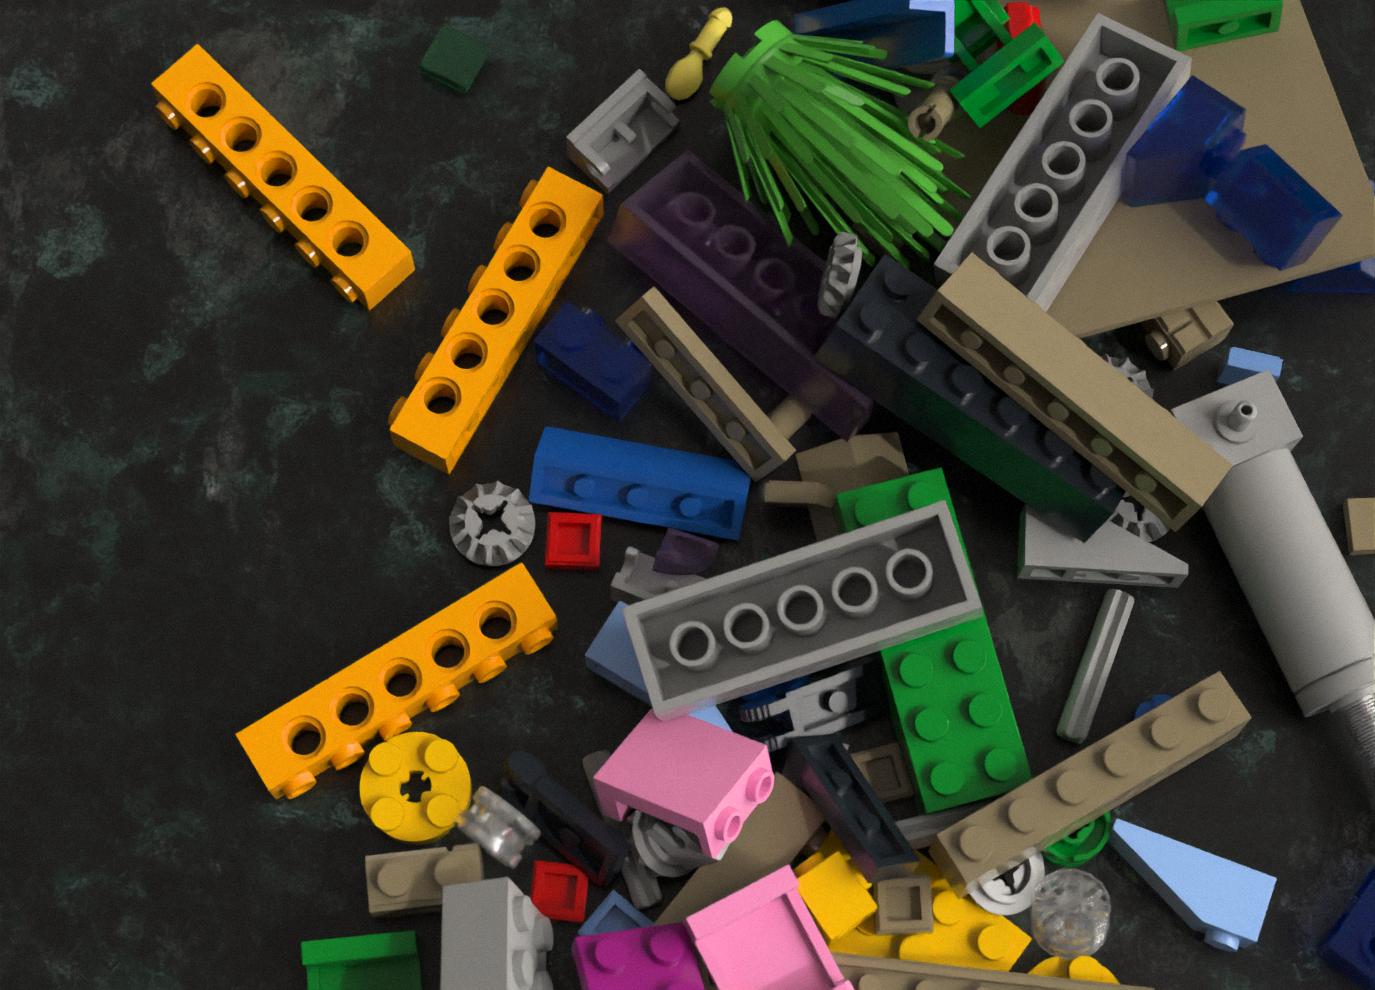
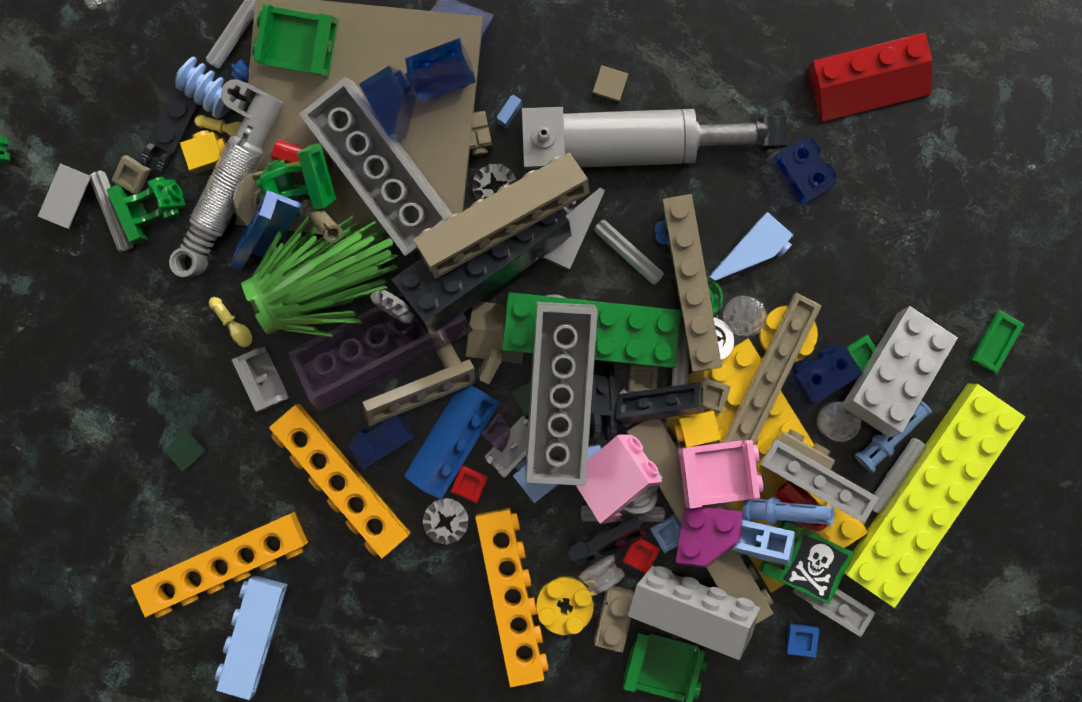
camera: 65 degrees left, 15 degrees up
(173, 269) = (251, 637): none -> light blue brick

